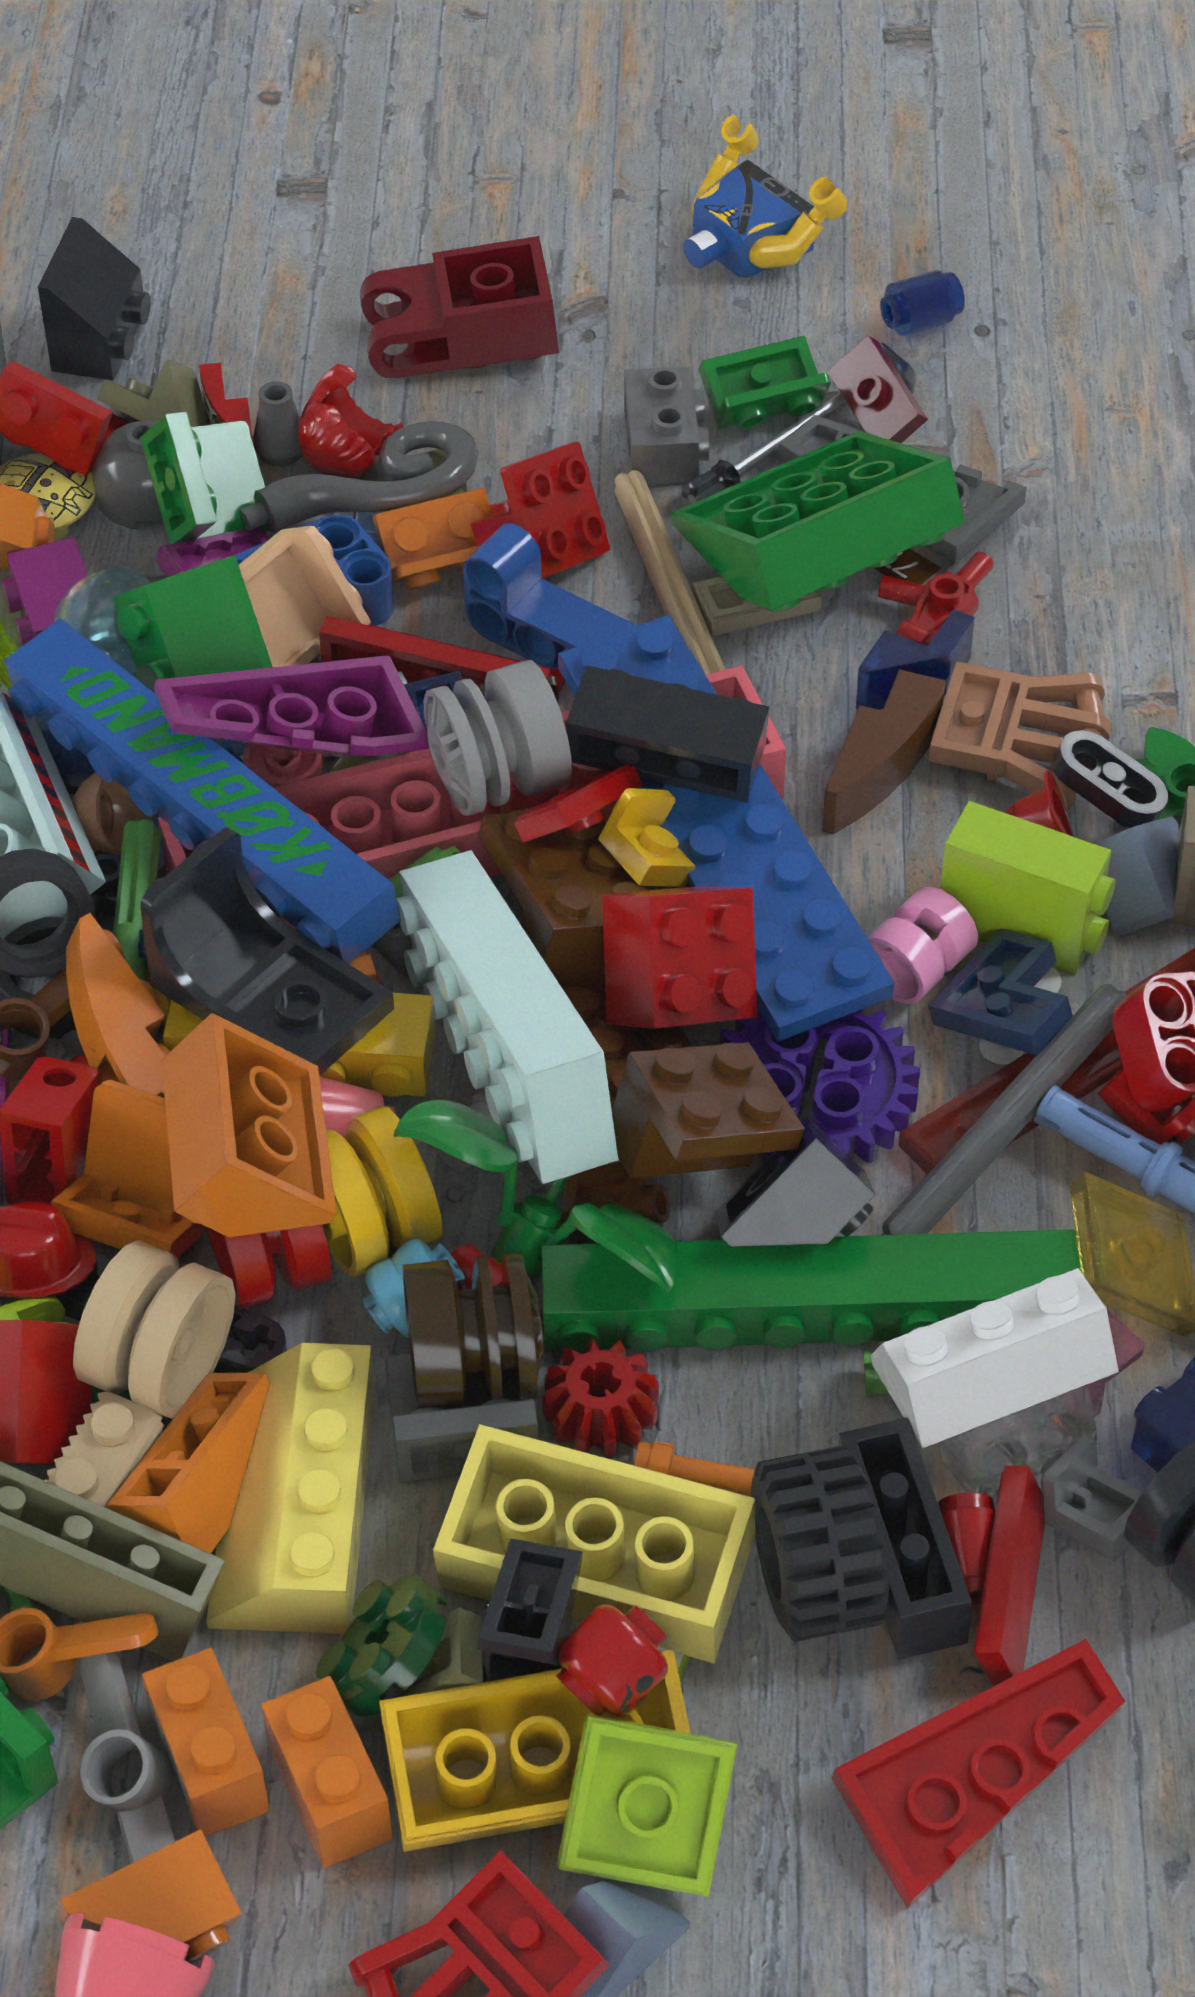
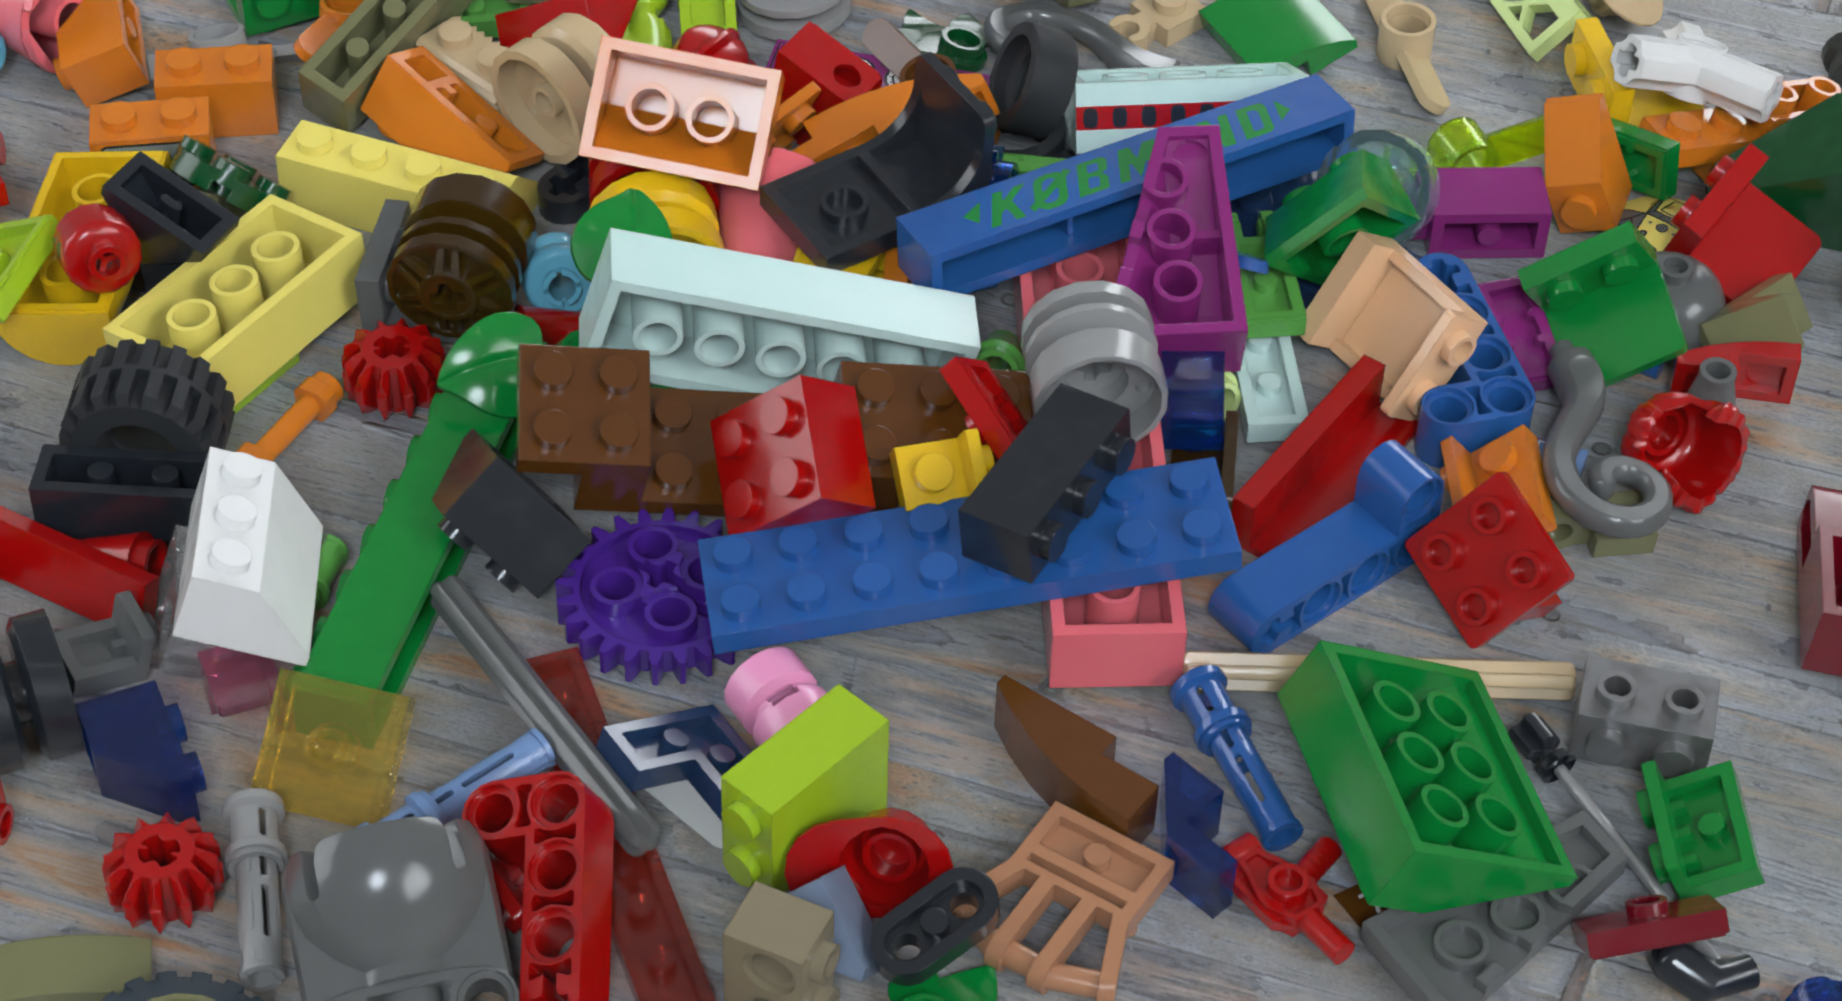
camera: 105 degrees right, 5 degrees down
(792, 667) = (1272, 815): none -> blue pin

